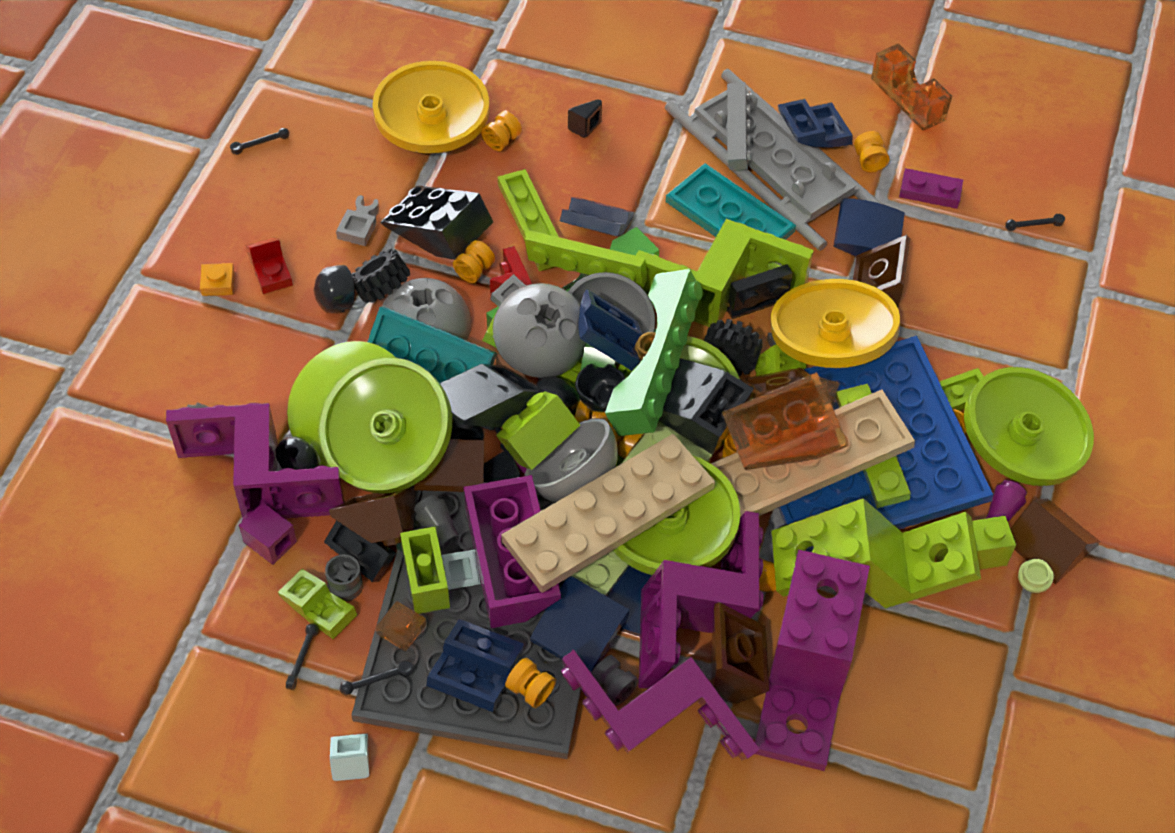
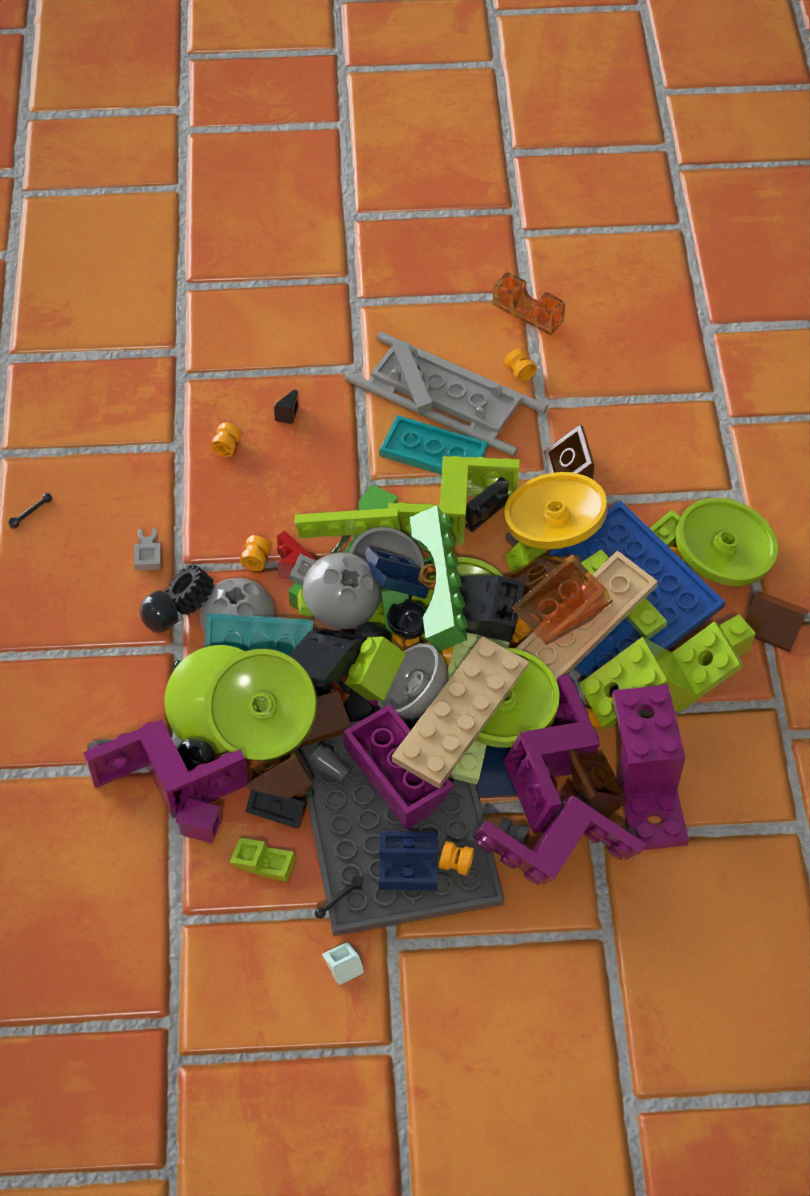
camera: 20 degrees left, 0 degrees up
(217, 279) = (54, 636): light orange plate -> none
(269, 265) = (90, 609): red slope -> none
(311, 631) = (268, 881): black hinge -> none
(345, 570) = (276, 826): dark grey wheel -> none
(400, 626) = (338, 852): clear orange plate -> none
(425, 570) = (340, 804): lime brick -> none
(431, 106) = (161, 438): yellow dish -> none
(439, 219) = (211, 528): black slope -> none
(461, 569) = (362, 794): light aqua slope -> none
(526, 206) = (276, 497): lime plate -> none
(580, 622) = (471, 802): dark blue slope -> none
(597, 216) = (335, 485): dark blue slope -> none
(736, 344) = (489, 550): black tyre -> none
(816, 125) = (469, 356): dark blue slope -> none
(866, 225) = (542, 426): dark blue slope -> none
(931, 188) = (576, 379): magenta plate -> none
(1007, 500) = (734, 602): magenta cone -> none
(1035, 576) = (775, 651): yellowish green plate -> none
(1057, 220) = (679, 374): black hinge -> none

